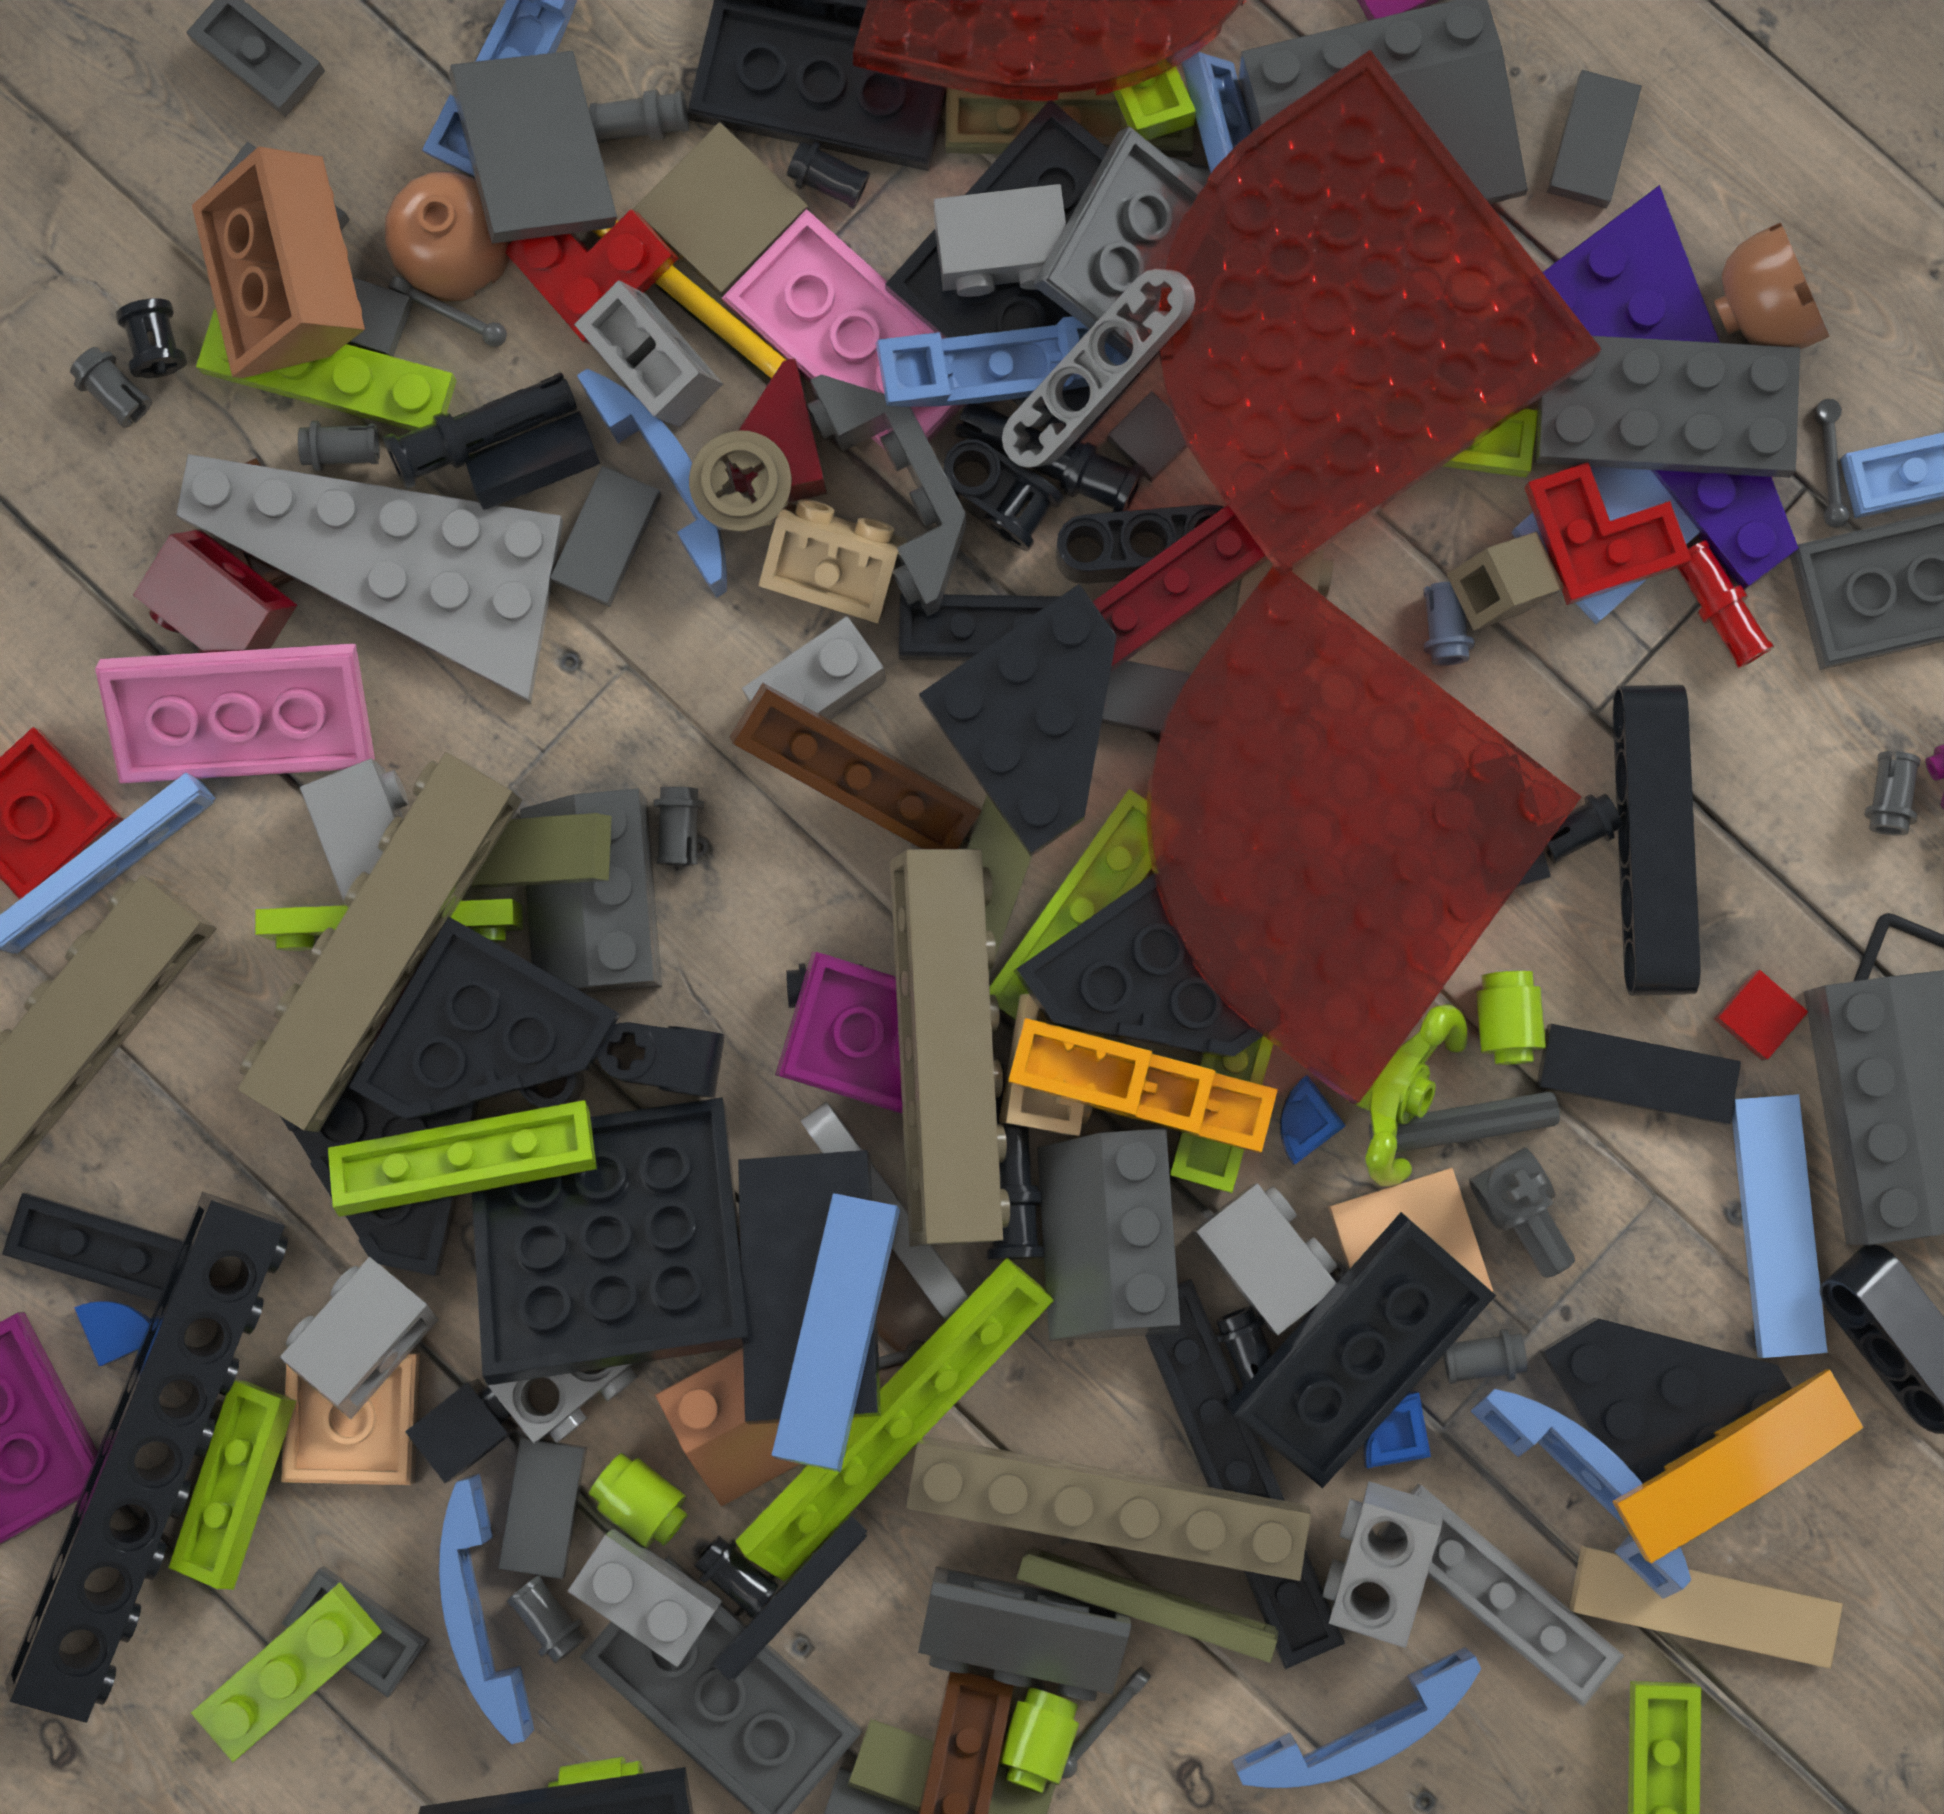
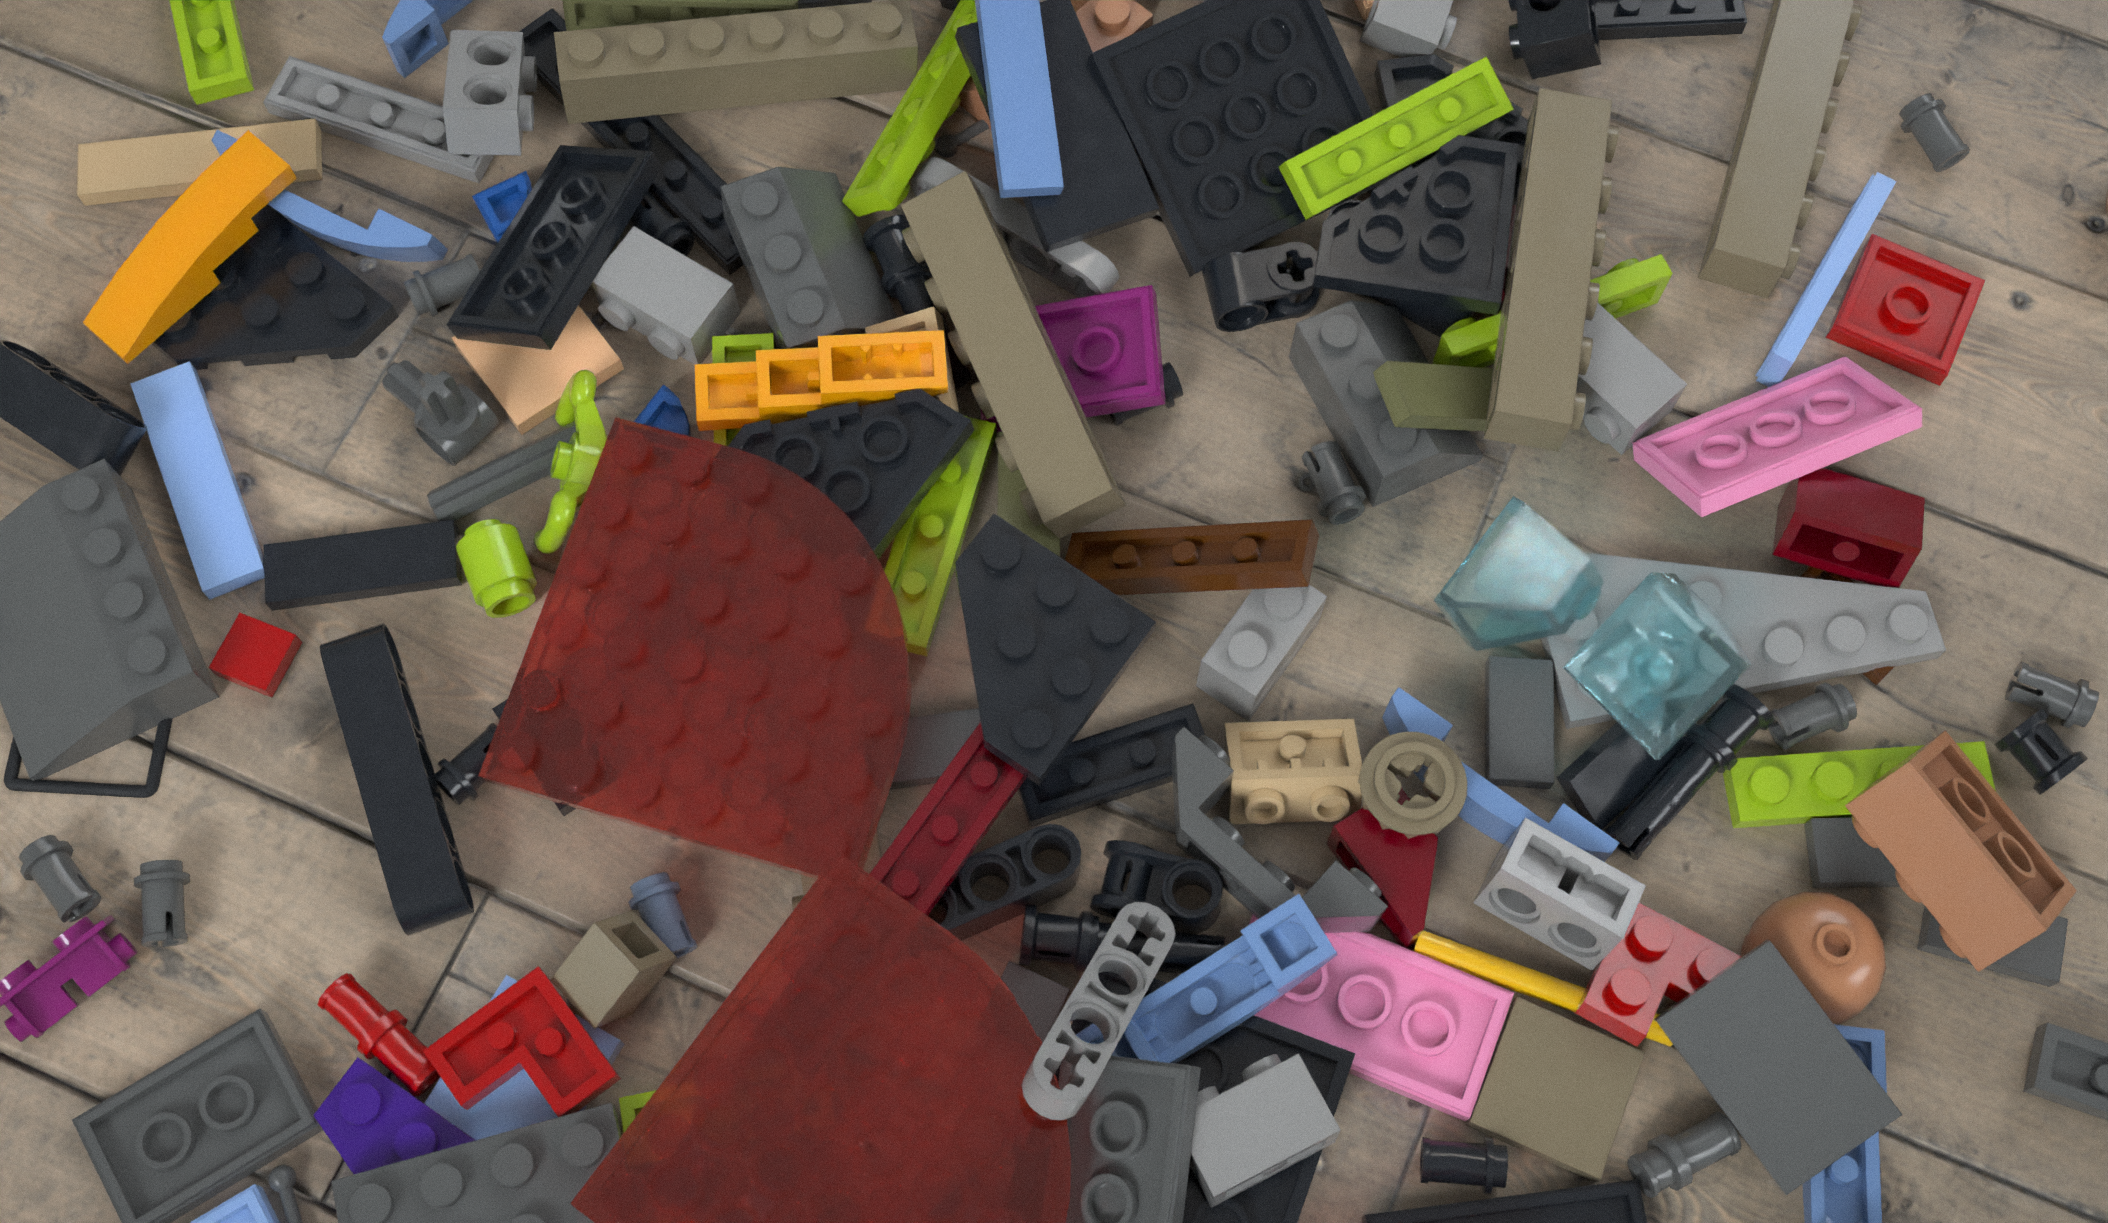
camera: 155 degrees right, 15 degrees down
(463, 511) = (1659, 662): none -> clear light blue slope
(493, 333) = (1720, 880): dark grey hinge -> none
(551, 634) = (1519, 583): none -> clear light blue slope

